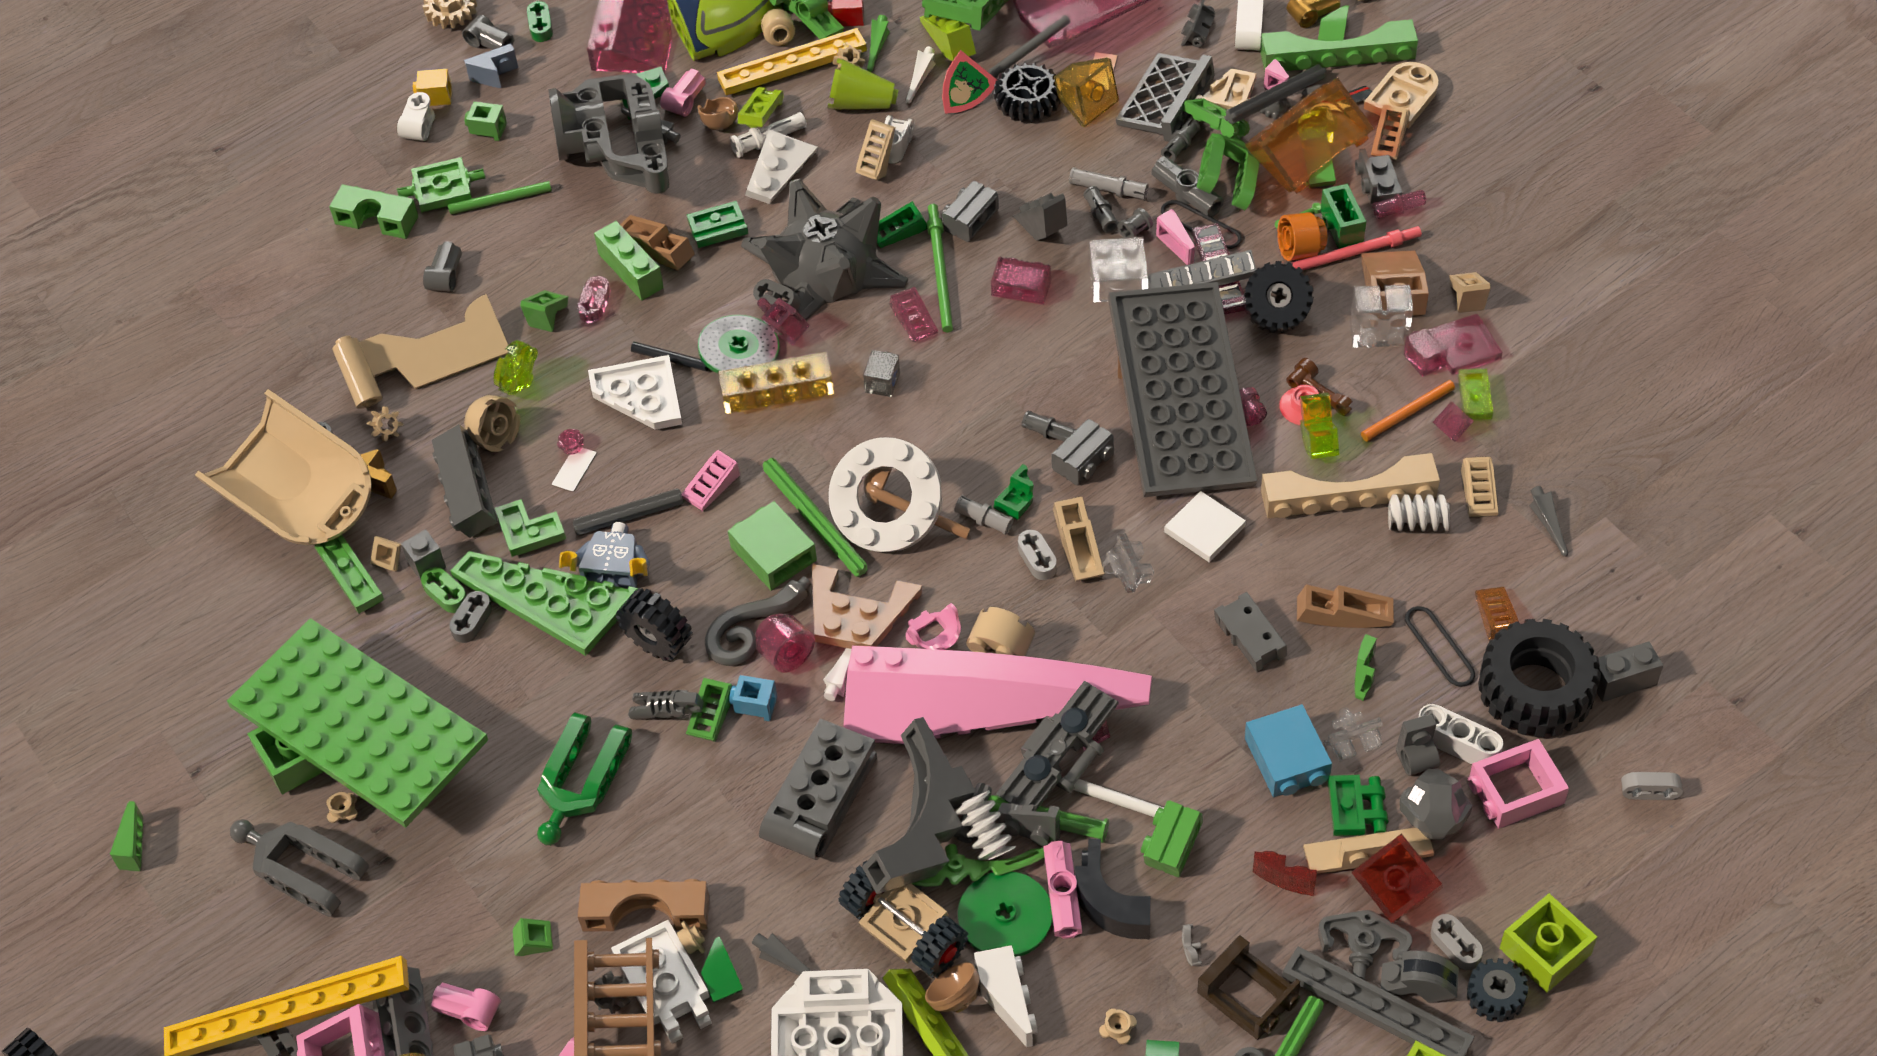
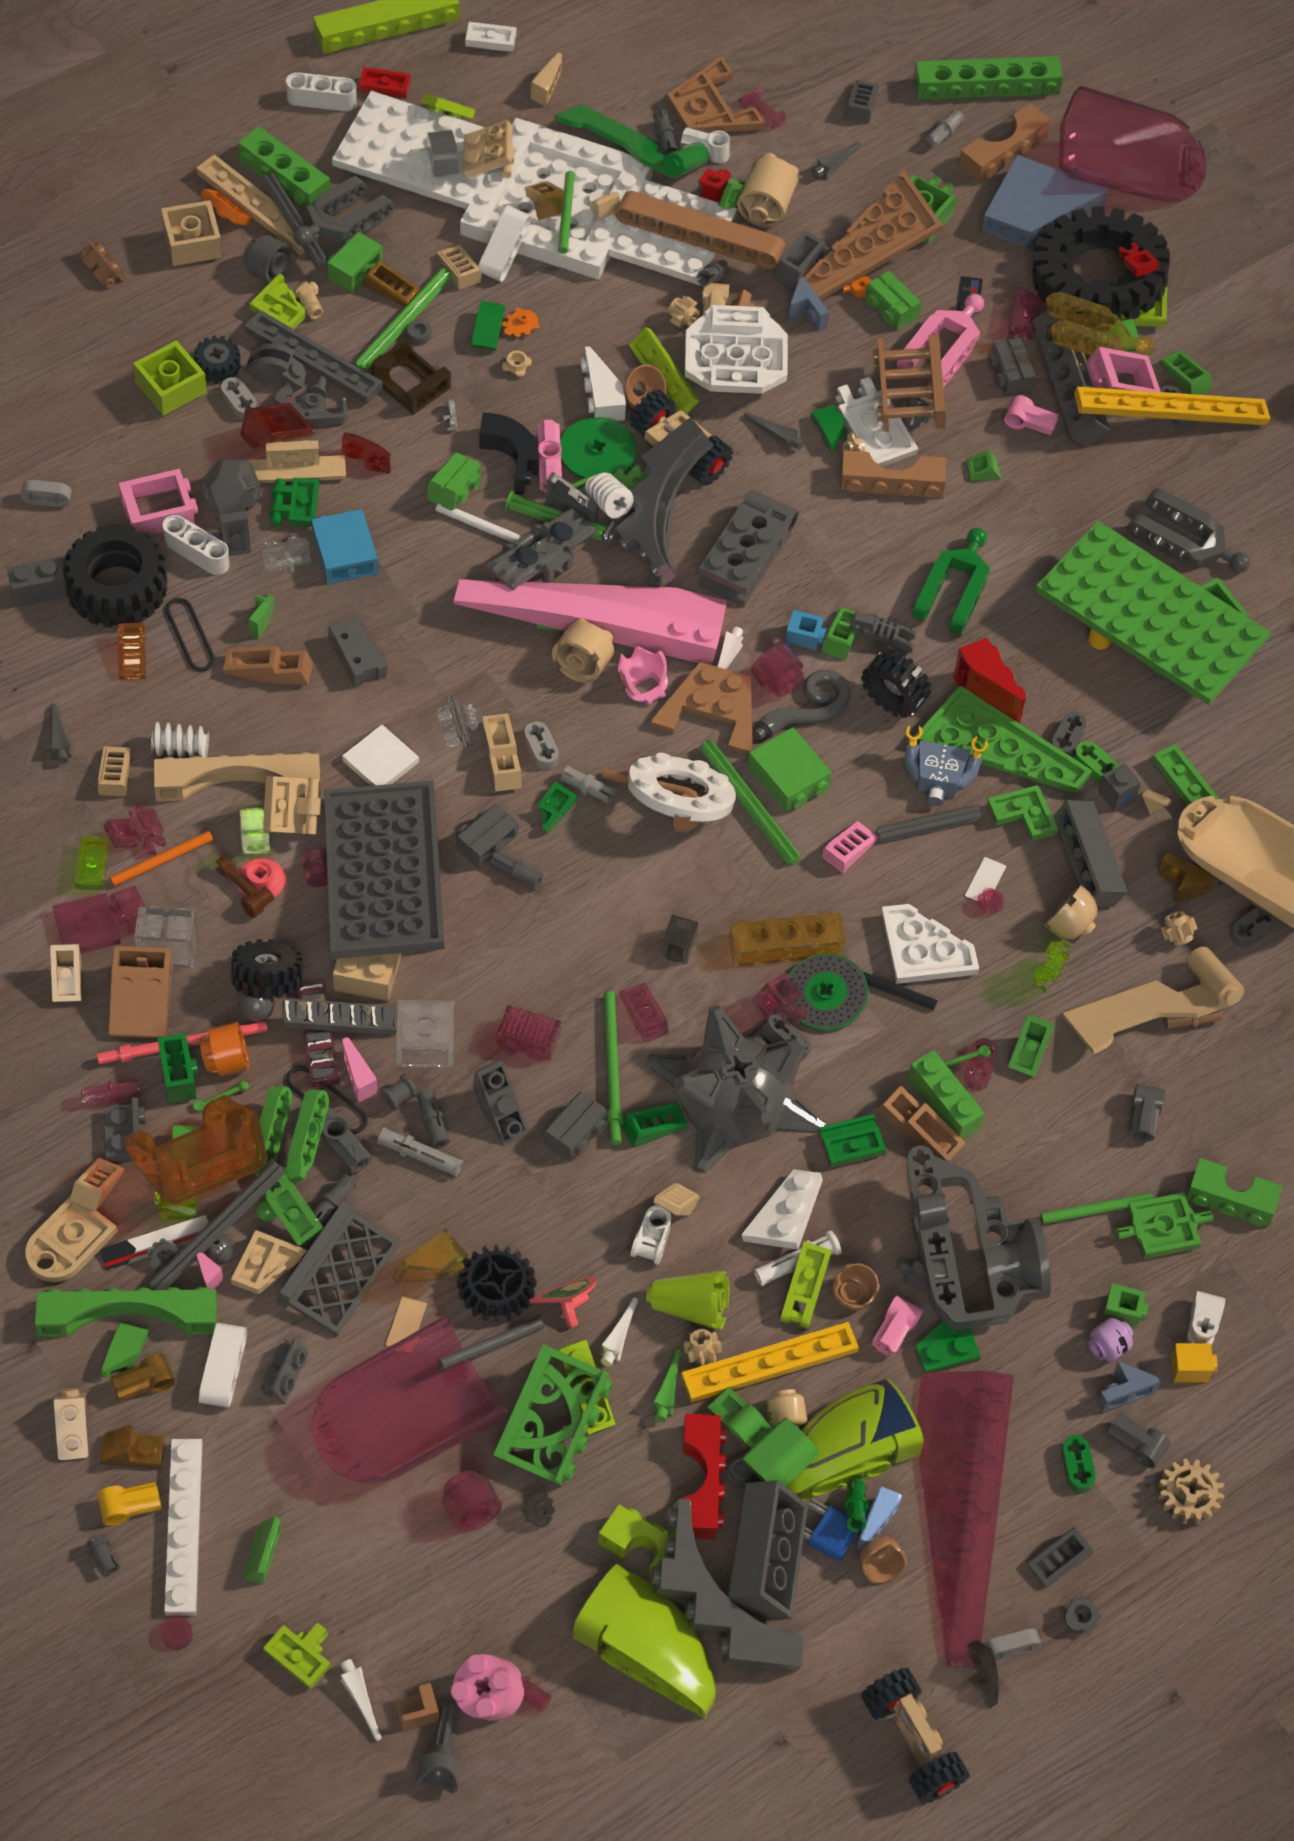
camera: 175 degrees right, 5 degrees up
(502, 92) = (1111, 1340): none -> lavender head
(552, 643) = (986, 676): none -> red slope
(591, 293) = (983, 1051): none -> bright green hinge
(1287, 441) = (291, 805): none -> tan plate
(1430, 430) = (148, 824): none -> clear pink plate

